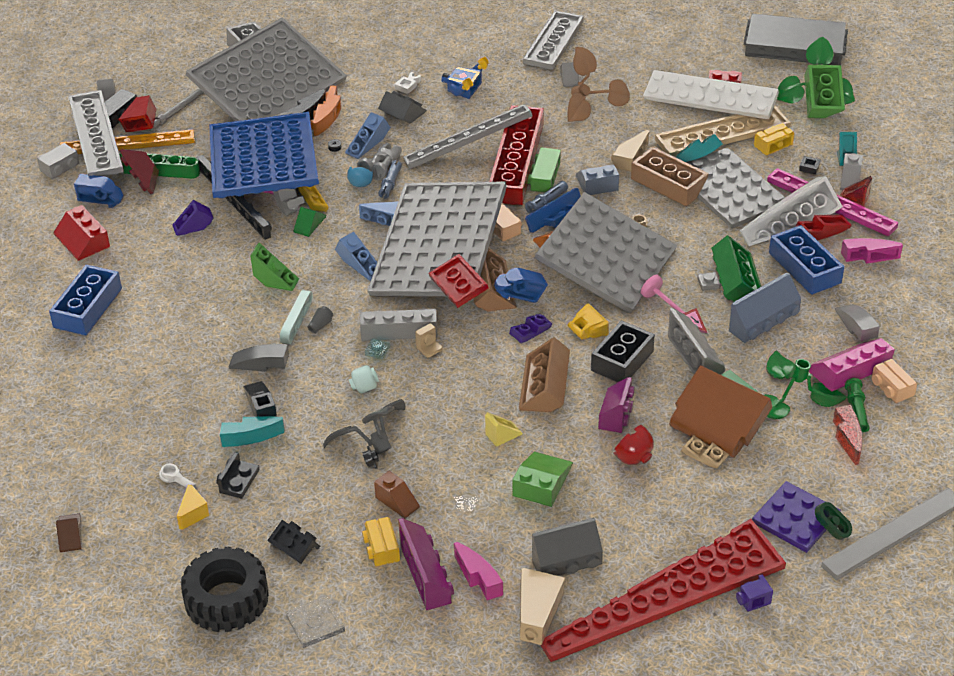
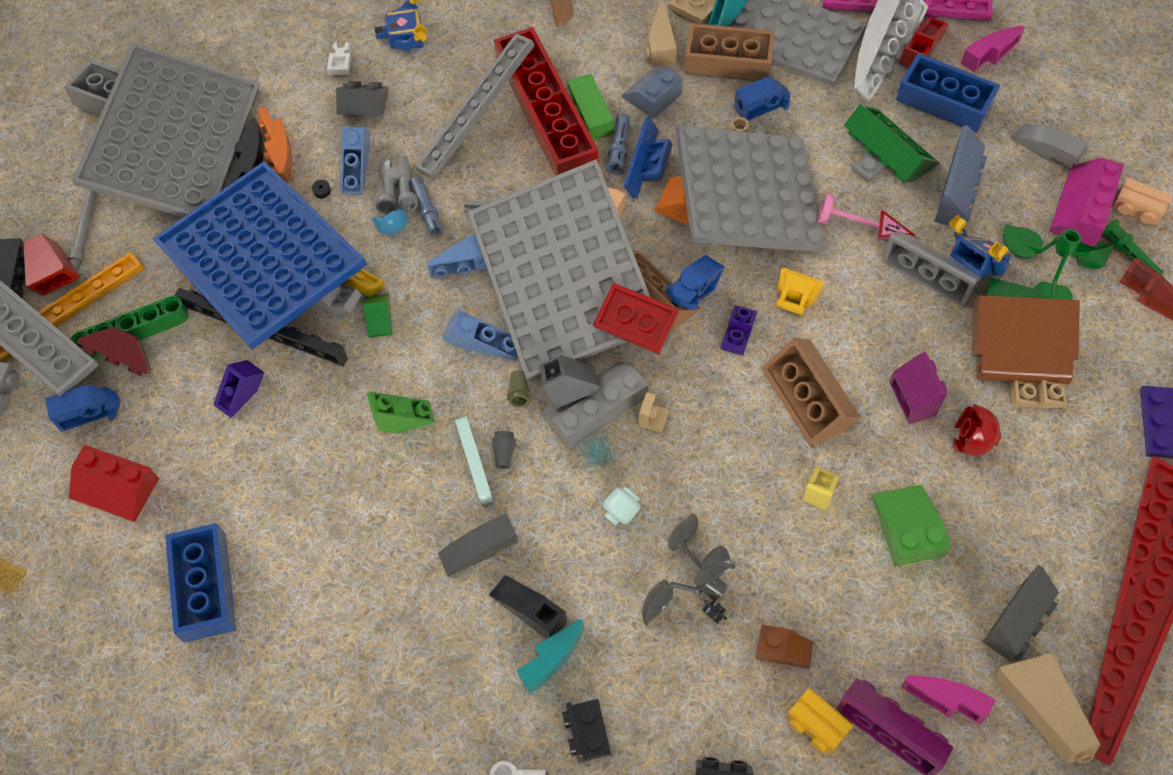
camera: 30 degrees left, 20 degrees up
(357, 295) = (518, 389): none -> olive cone
(387, 297) = (568, 380): none -> dark grey slope
(622, 352) = (867, 313): black brick -> none
(669, 211) = (761, 98): none -> blue piece
(734, 354) = (978, 254): none -> blue torso

